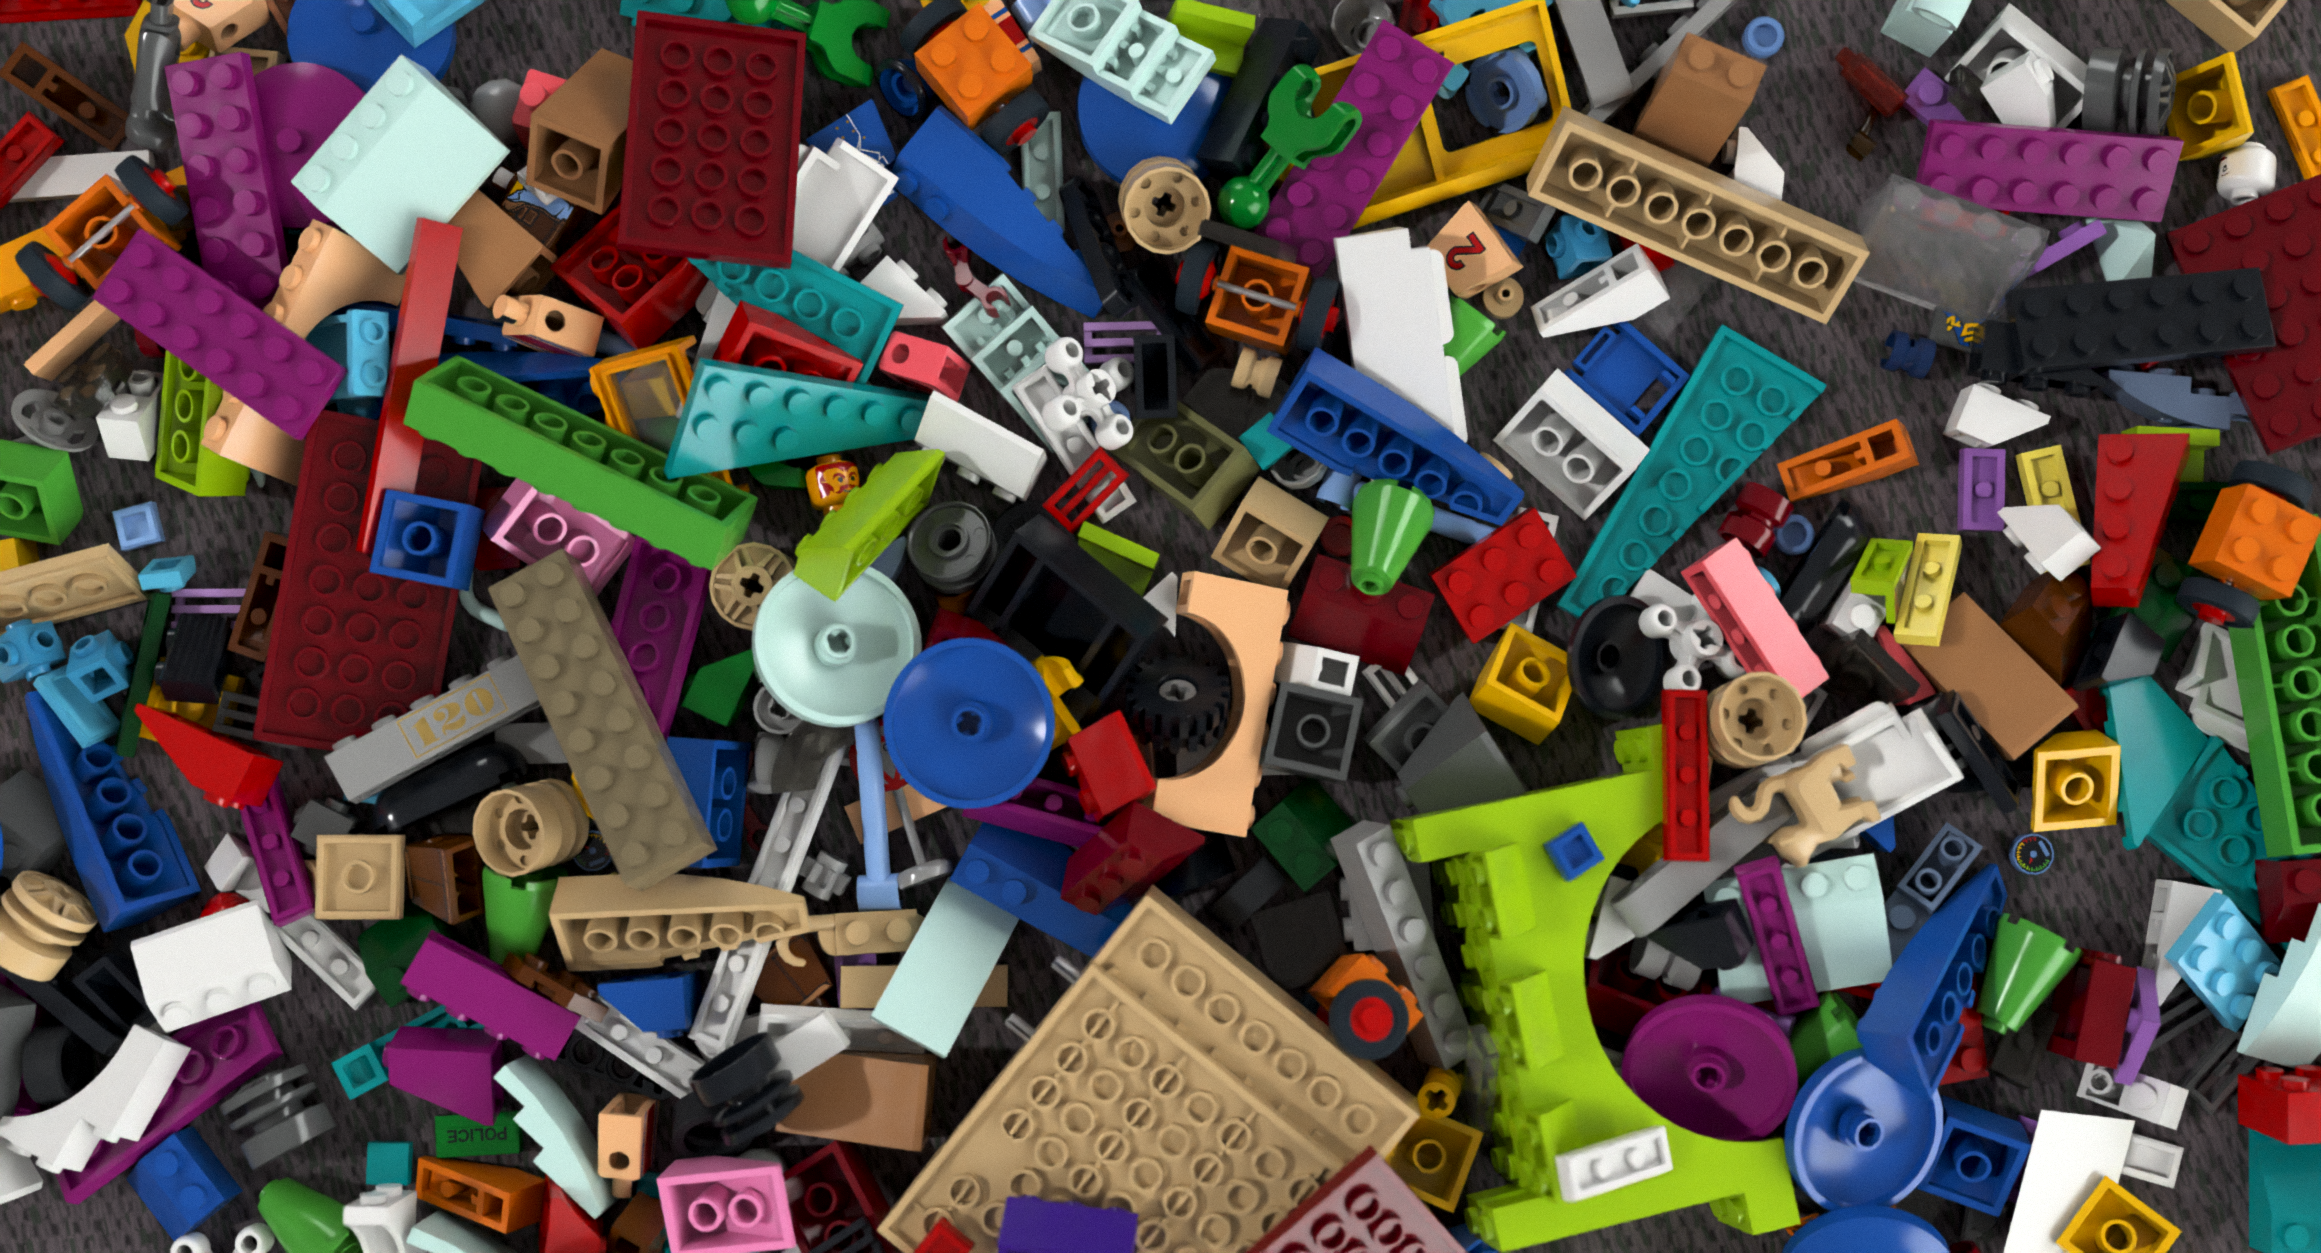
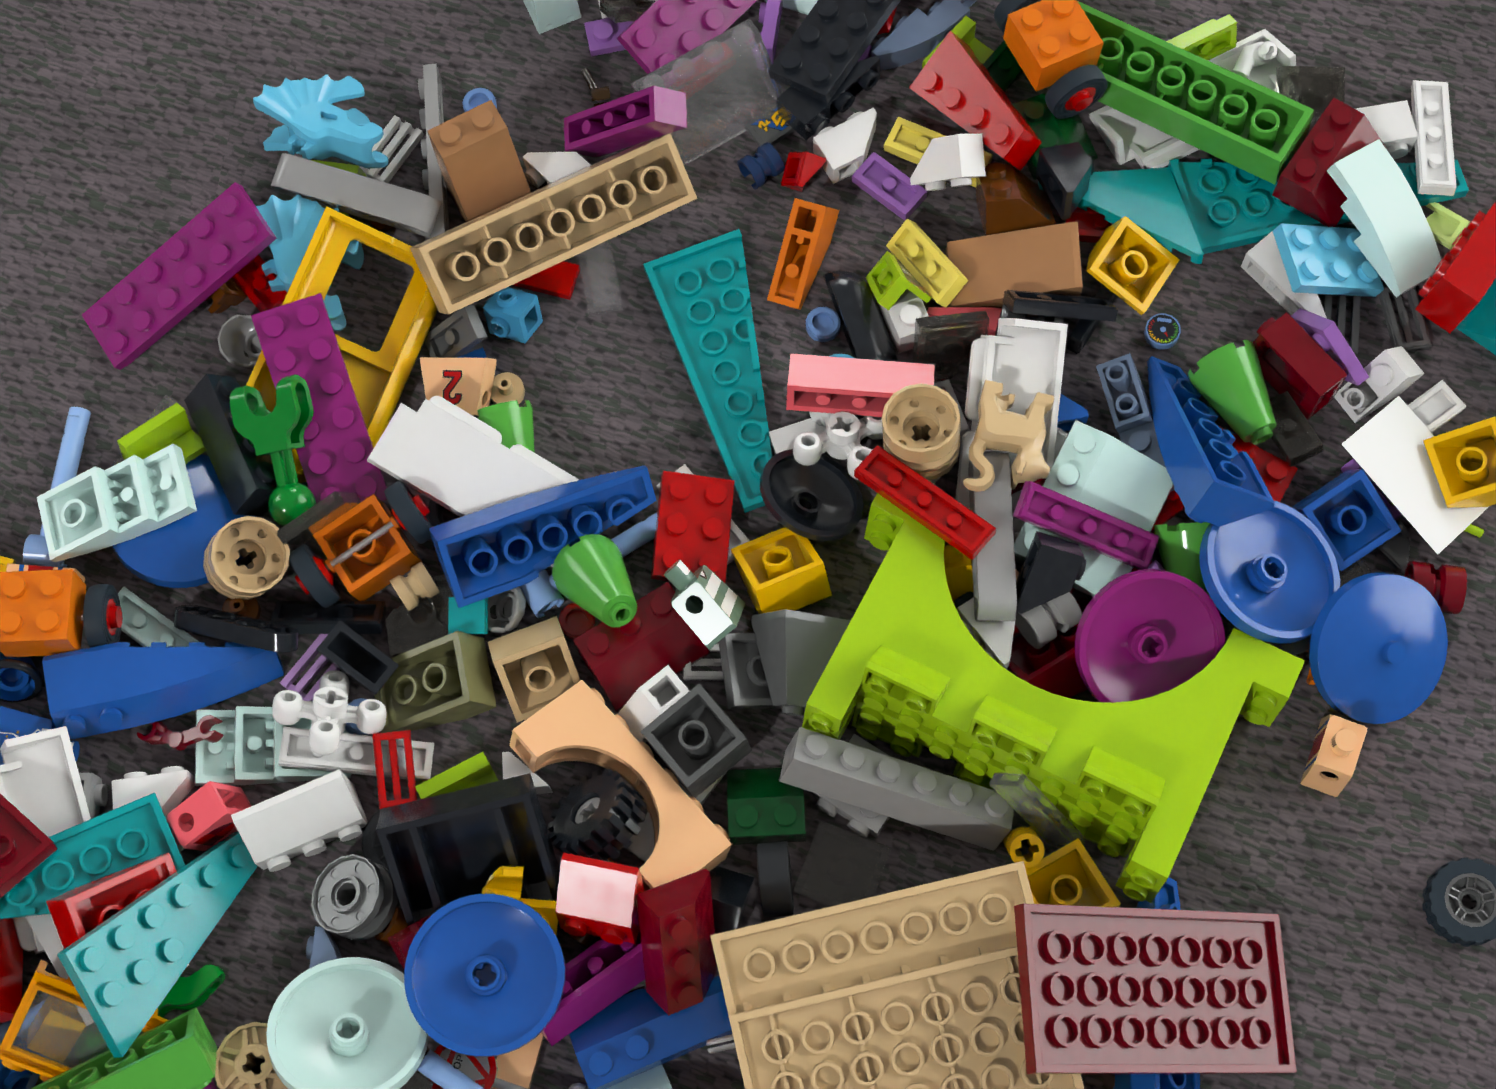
camera: 50 degrees left, 15 degrees down
(831, 482) = (238, 952): light orange head -> none
(867, 521) = (282, 939): lime slope -> none
(1363, 1006) = (916, 846): brick -> none
(1440, 645) = (704, 602): none -> torso
(1524, 85) = (376, 266): medium blue plate -> none
(1571, 444) = (642, 419): white slope -> none
(1573, 851) = (917, 613): blue tile -> none
(1604, 296) = (561, 317): white slope -> none
(1613, 1163) = (1159, 748): white tile -> none
(1621, 369) = (621, 352): blue container -> none
(1757, 516) = (790, 334): dark red wheel -> none
(1849, 200) = (625, 121): none -> magenta brick
(1871, 82) = (565, 60): clear red cylinder -> none
(1932, 396) = (800, 168): none -> red slope

